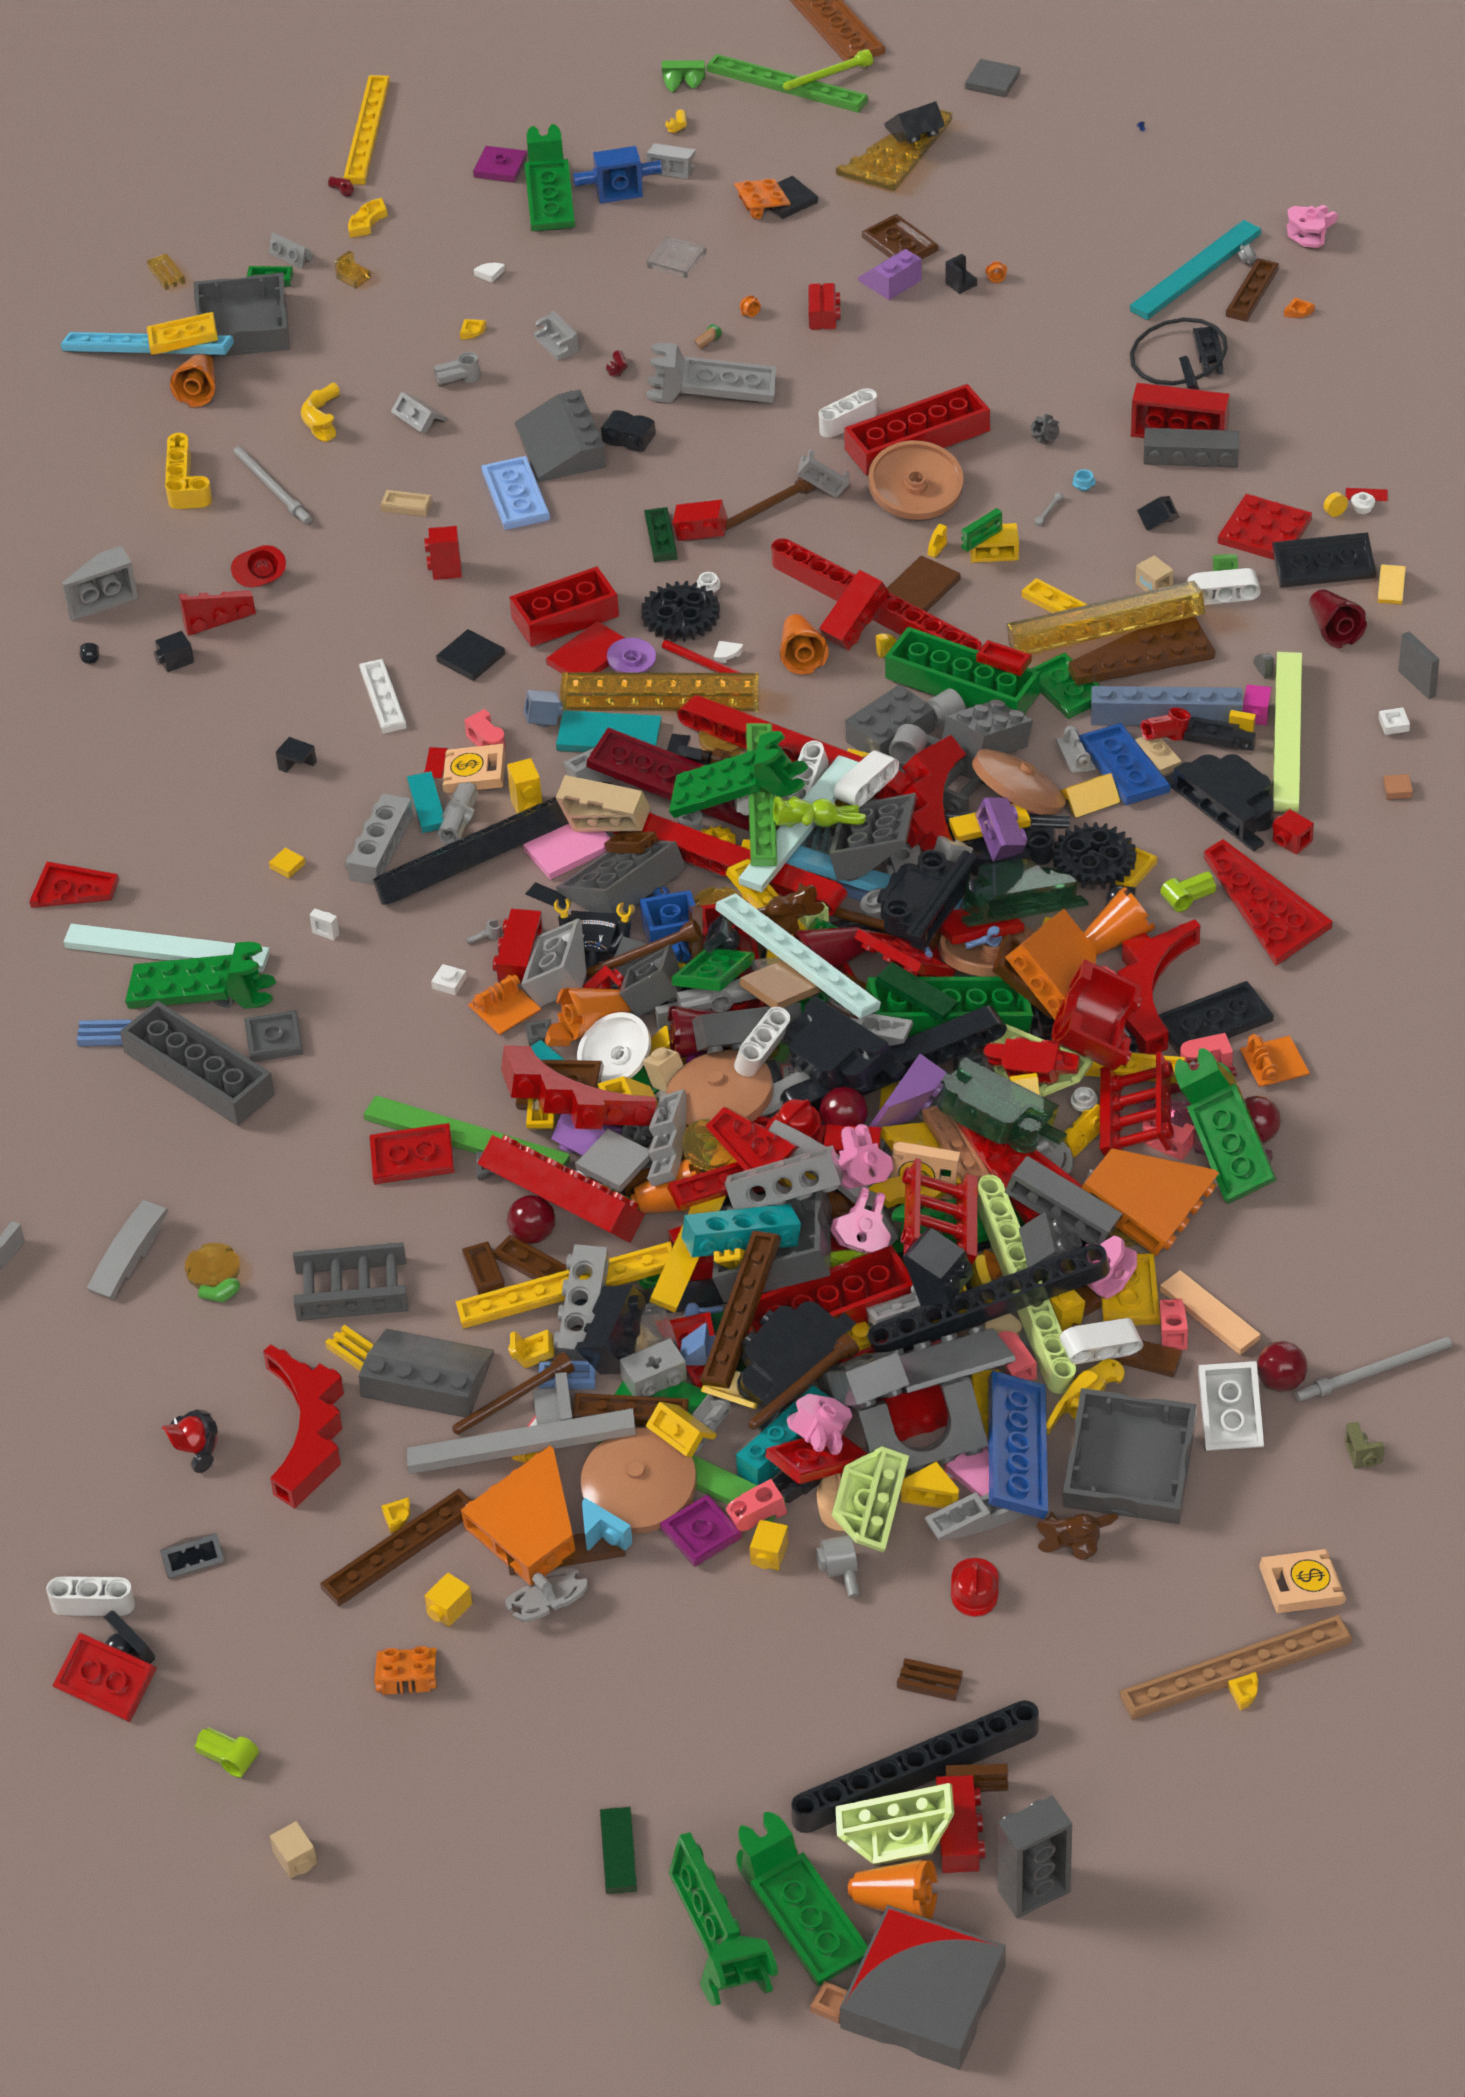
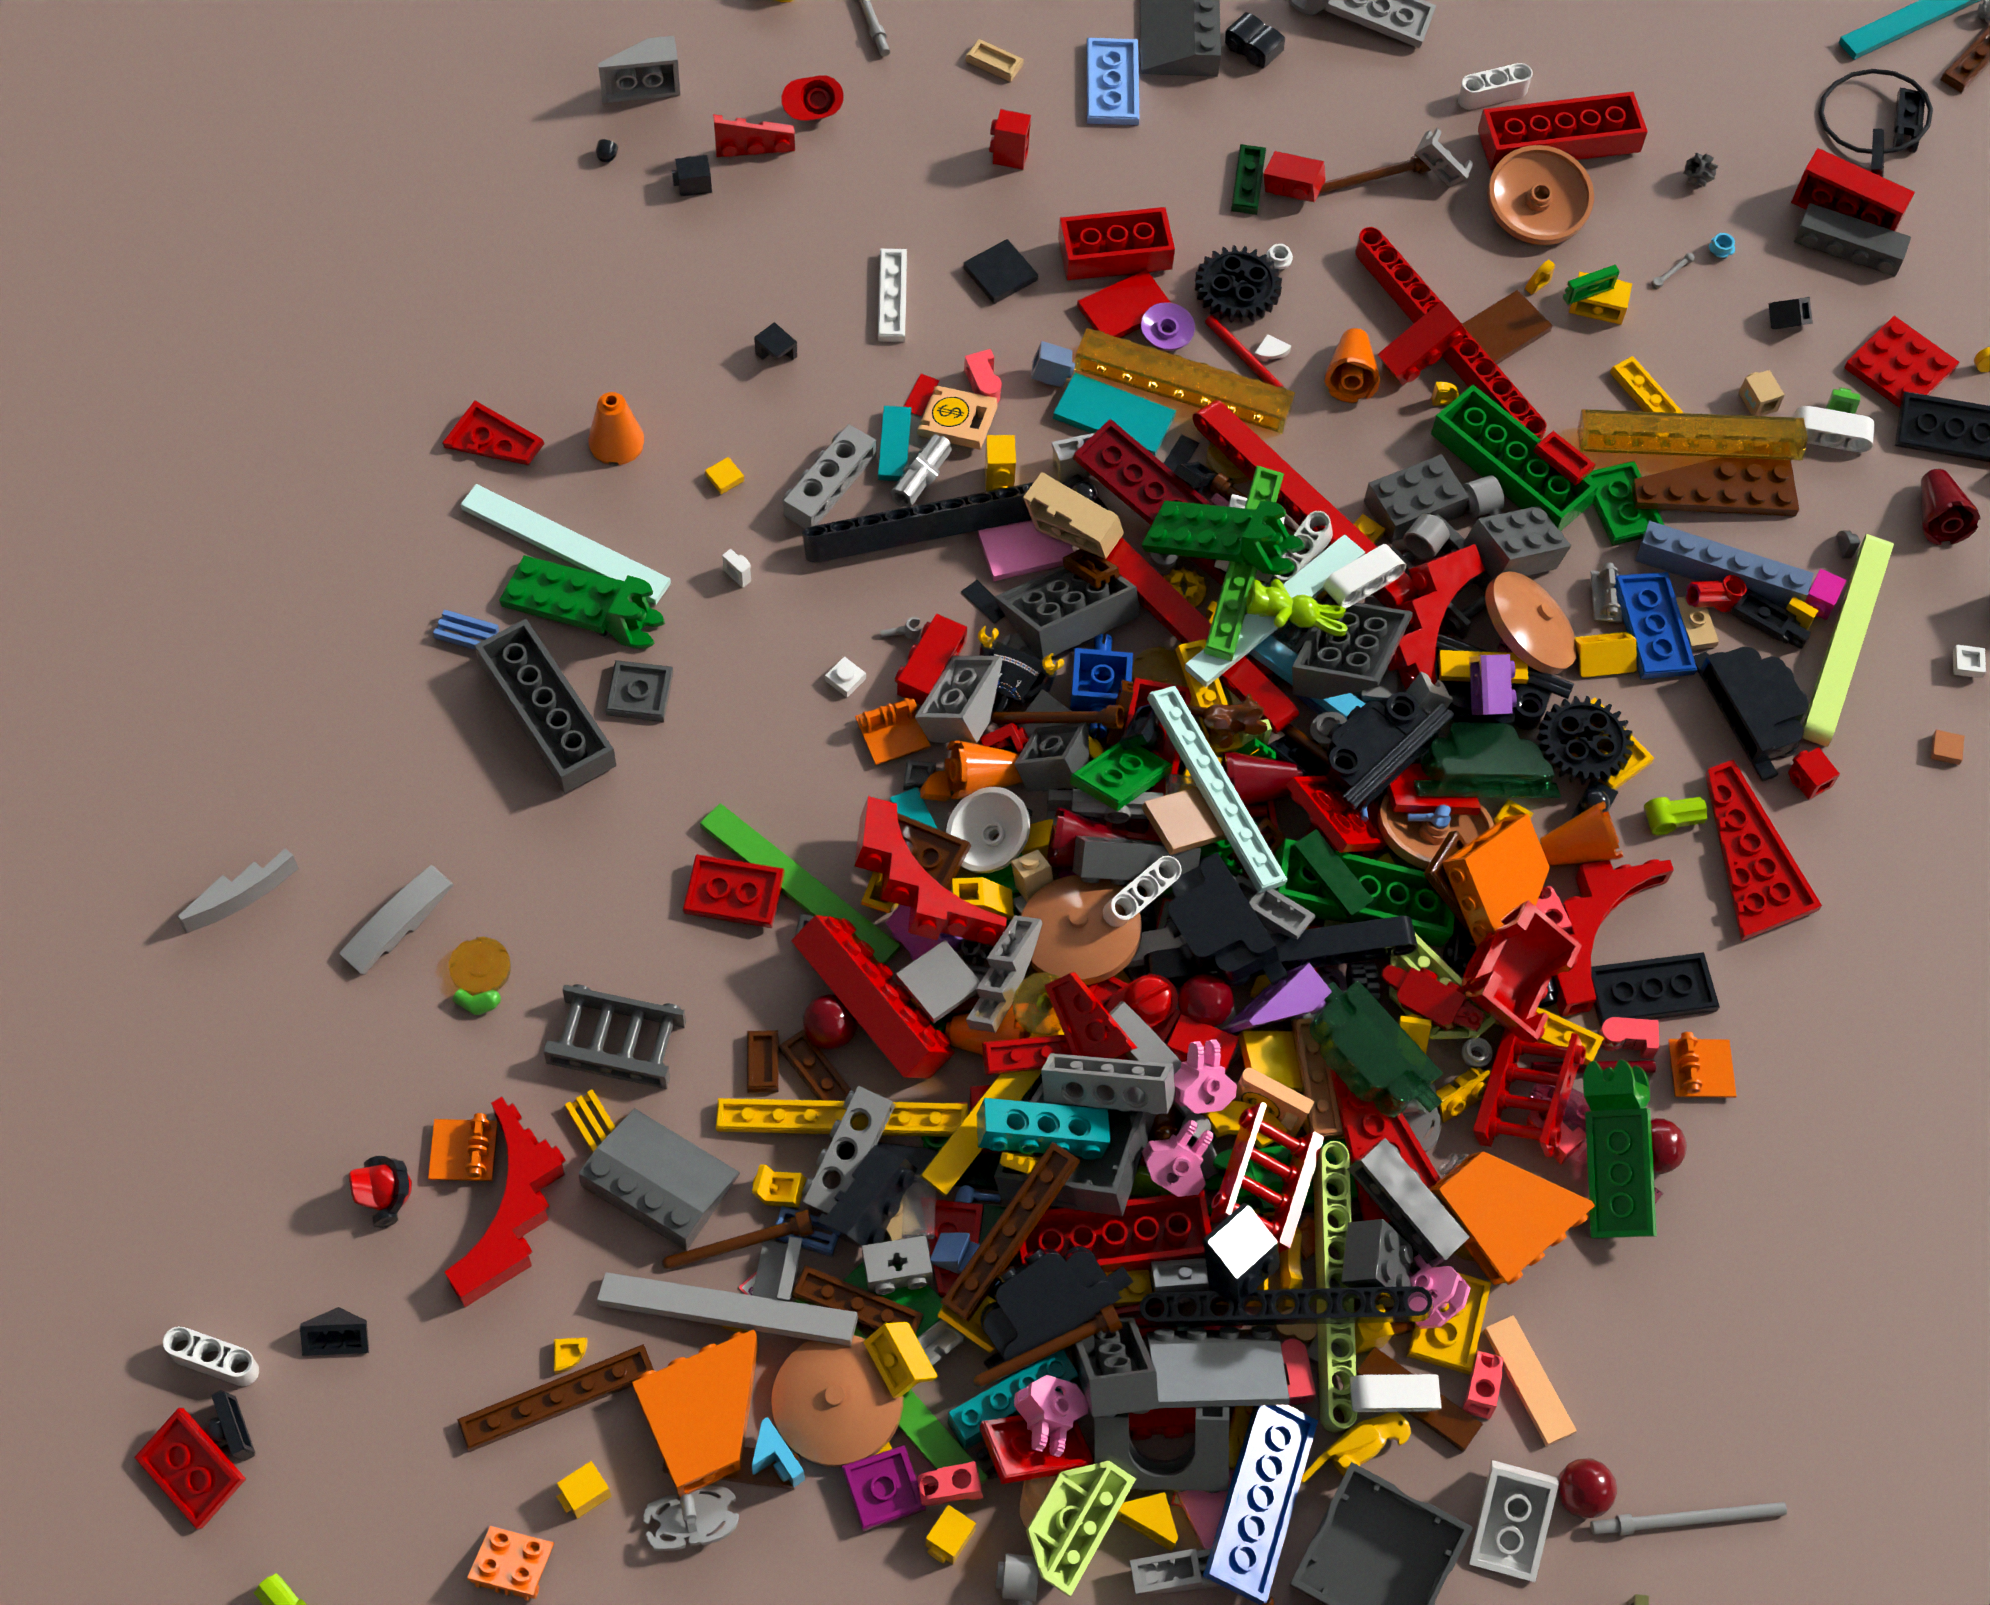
camera: 10 degrees right, 15 degrees up
(179, 850) = (615, 431): none -> orange cone
(250, 1396) = (463, 1149): none -> orange hinge

